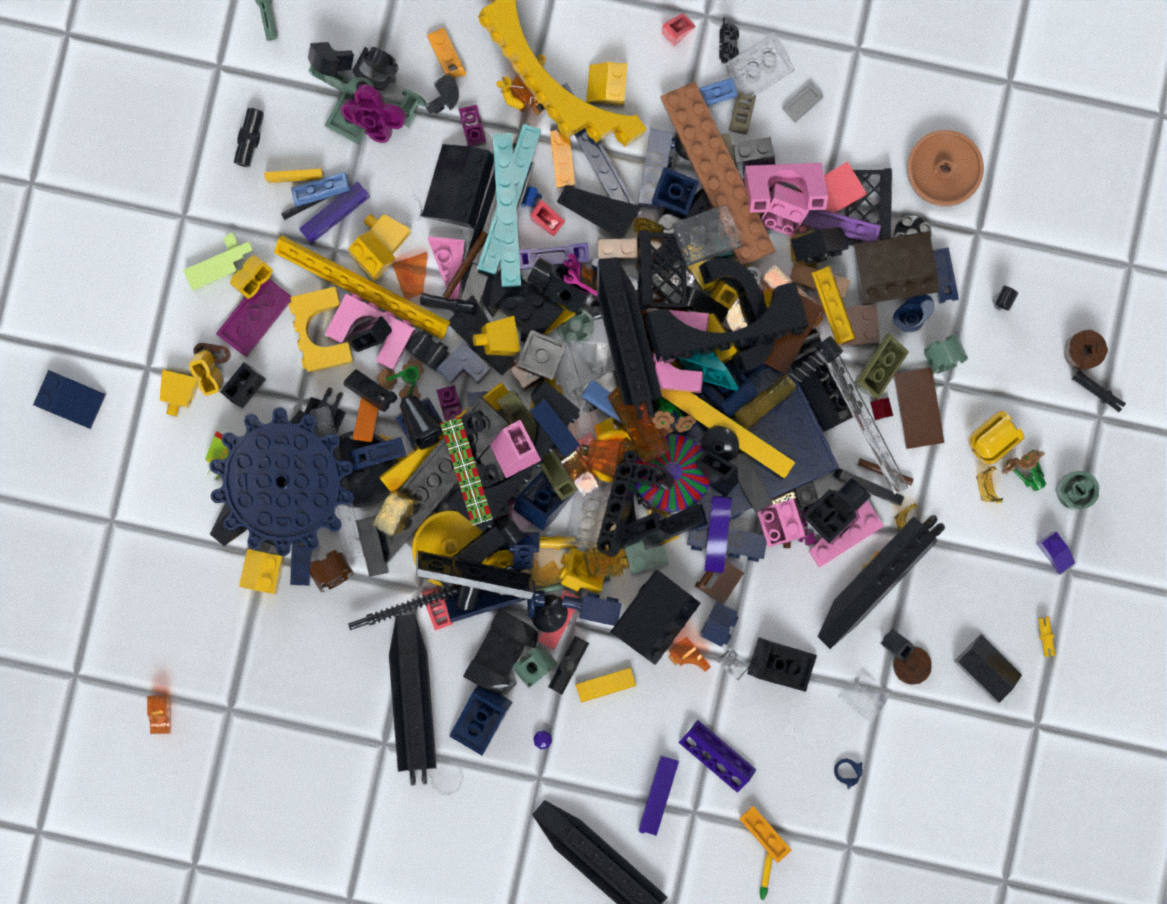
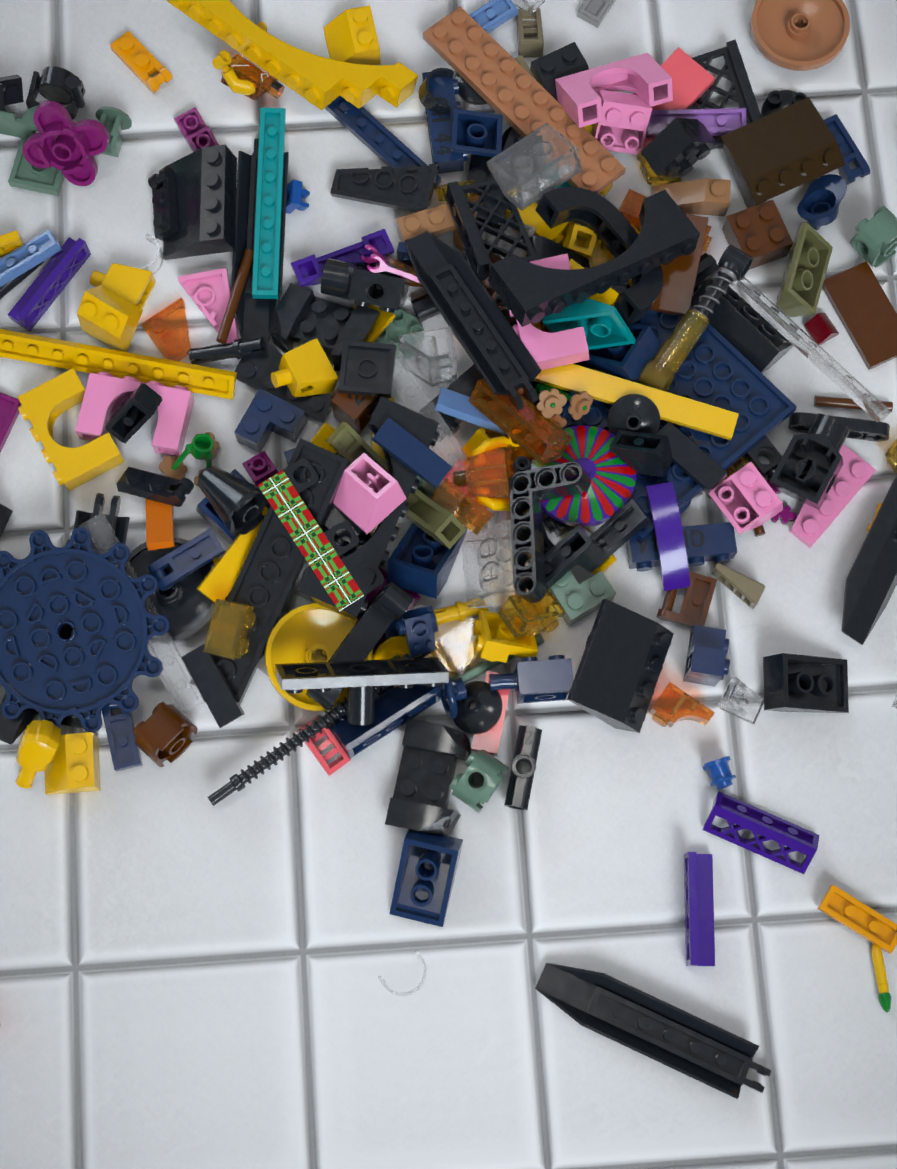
camera: 15 degrees left, 10 degrees down
(241, 557) = (36, 750): none -> yellow piece
(411, 698) = (324, 878): black hinge -> none
(427, 350) = (215, 416): black brick -> none
(433, 175) = (164, 203): none -> black plate
(449, 94) = (157, 102): black brick -> none
(506, 210) = (270, 213): plate -> none
(542, 739) = (518, 880): dark purple tile -> none
(546, 218) = (322, 215): coral slope -> none
(547, 569) = (456, 645): none -> clear slope
(562, 159) = (322, 142): light orange plate -> none
(605, 685) = (580, 781): yellow tile -> none
(646, 147) = (424, 93): none -> black helmet
(702, 708) = (720, 773): none -> blue brick
(763, 586) = (742, 586): none -> dark tan slope
(833, 305) = (719, 211): yellow tile -> none

